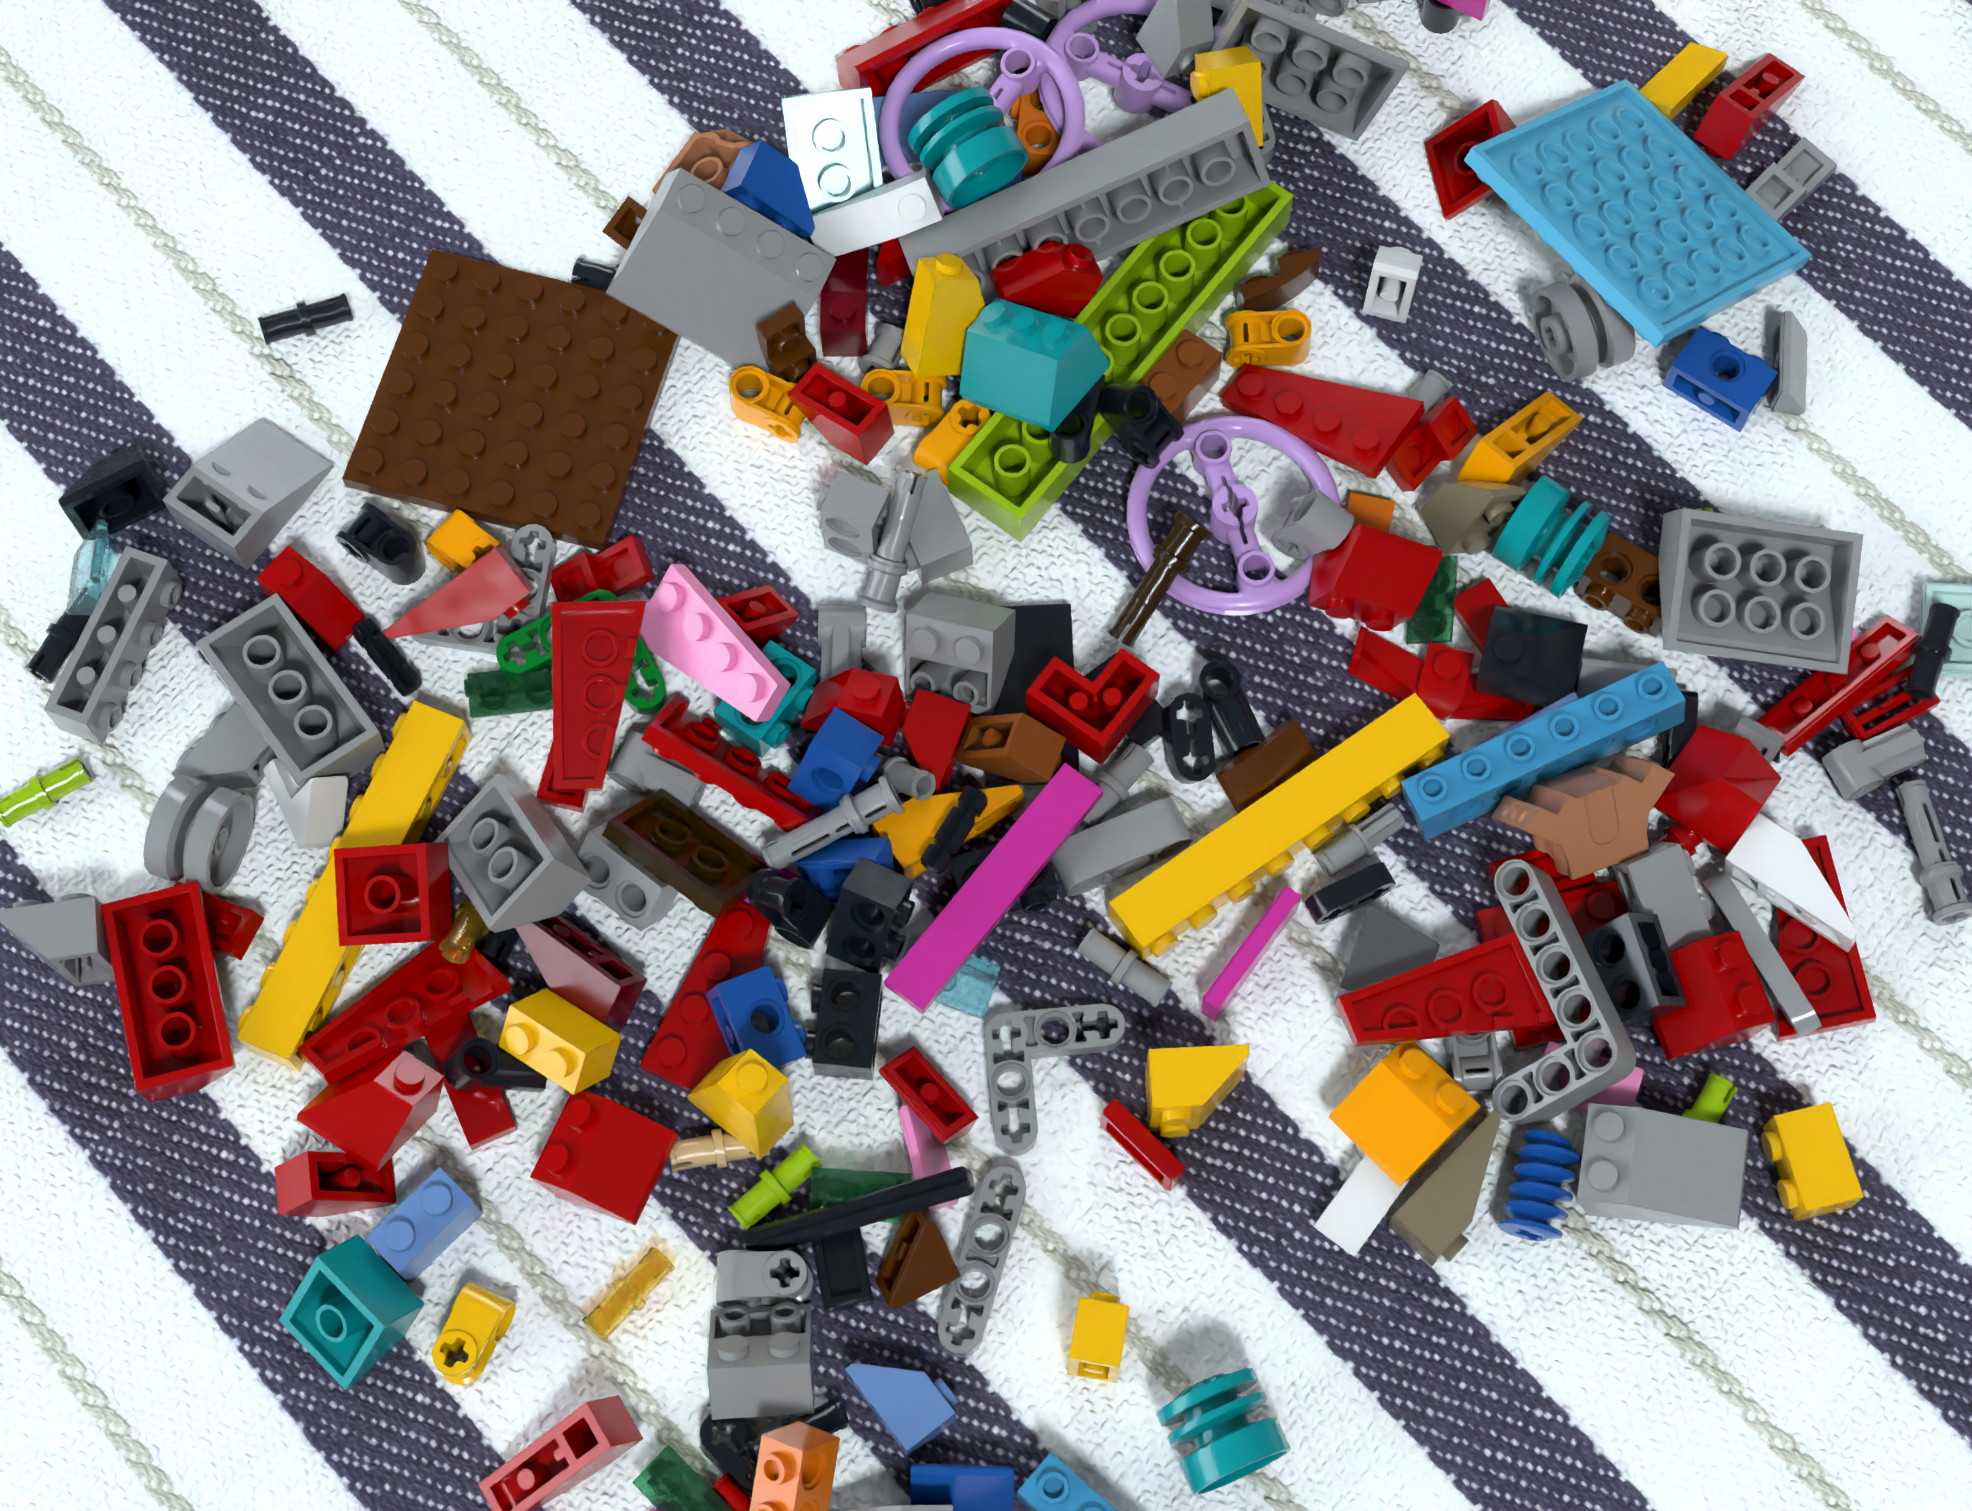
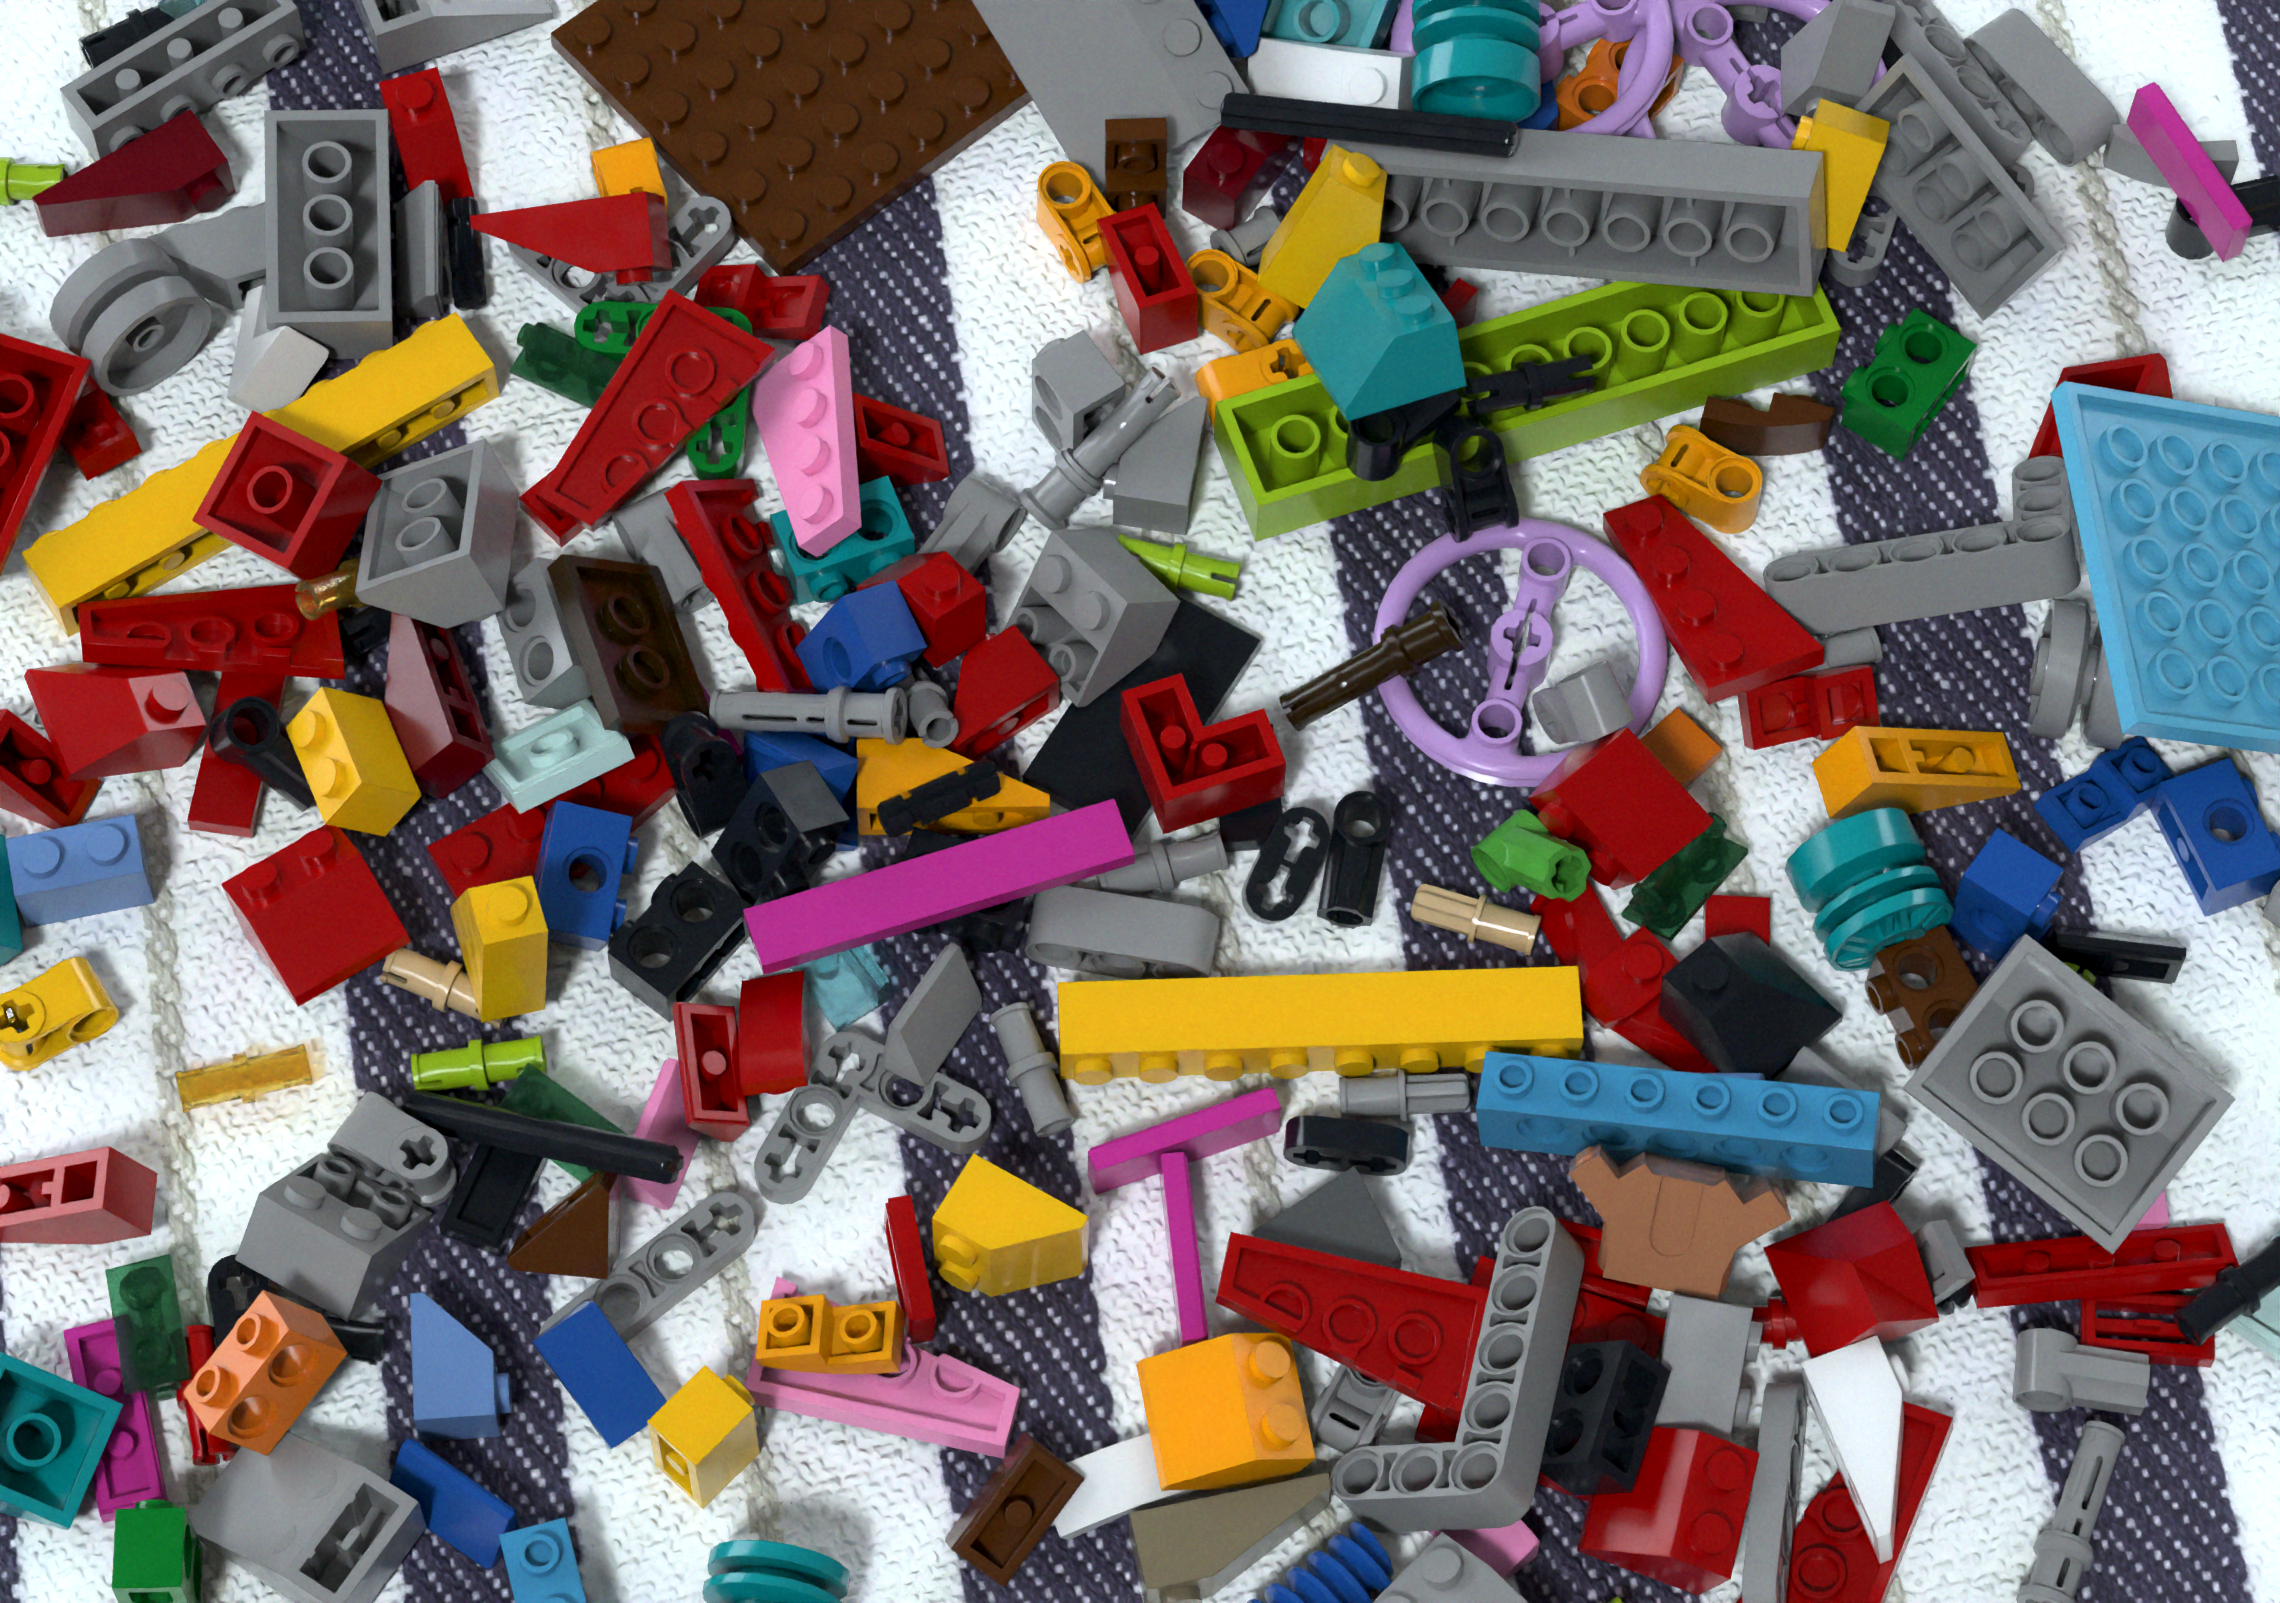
camera: 30 degrees right, 5 degrees down
(141, 735) = (145, 183): none -> dark red slope
(358, 673) = (420, 253): none -> light grey slope
(377, 540) = (545, 125): black piece -> none
(686, 953) = (555, 756): none -> light aqua plate
(929, 232) = (1369, 125): none -> black axle
(951, 1048) = (774, 1034): none -> red slope
(993, 586) = (1183, 568): none -> lime pin
(999, 1340) = (600, 1373): none -> blue slope
(1011, 747) = (1072, 751): dark orange slope -> none
(1044, 975) = (932, 1018): none -> light grey slope
(1050, 279) = (1480, 259): red slope -> none
(1127, 1223) = (826, 1339): none -> light orange slope
(1138, 340) = (1529, 385): none -> black pin
(1157, 1233) = (925, 1401): none -> bright pink wing
(1184, 374) = (1565, 465): dark orange brick -> none
(1267, 766) = (1352, 944): reddish brown slope -> none
(1303, 1028) = (1182, 1249): none -> dark pink tile
(1313, 1257) = (1013, 1509): none -> reddish brown slope
(1325, 699) = (1475, 918): none -> tan axle
(1330, 641) = (1528, 855): none -> bright green piece
(1350, 206) = (1915, 387): none -> green brick
(1392, 283) = (1897, 495): white slope -> none
(1461, 310) = (1943, 570): none -> light grey beam
(1469, 513) = (1786, 805): dark tan slope -> none
(1635, 393) = (2105, 797): none -> blue slope
(1636, 491) = (2005, 896): none -> blue brick
(1711, 484) = (2118, 954): none -> black slope

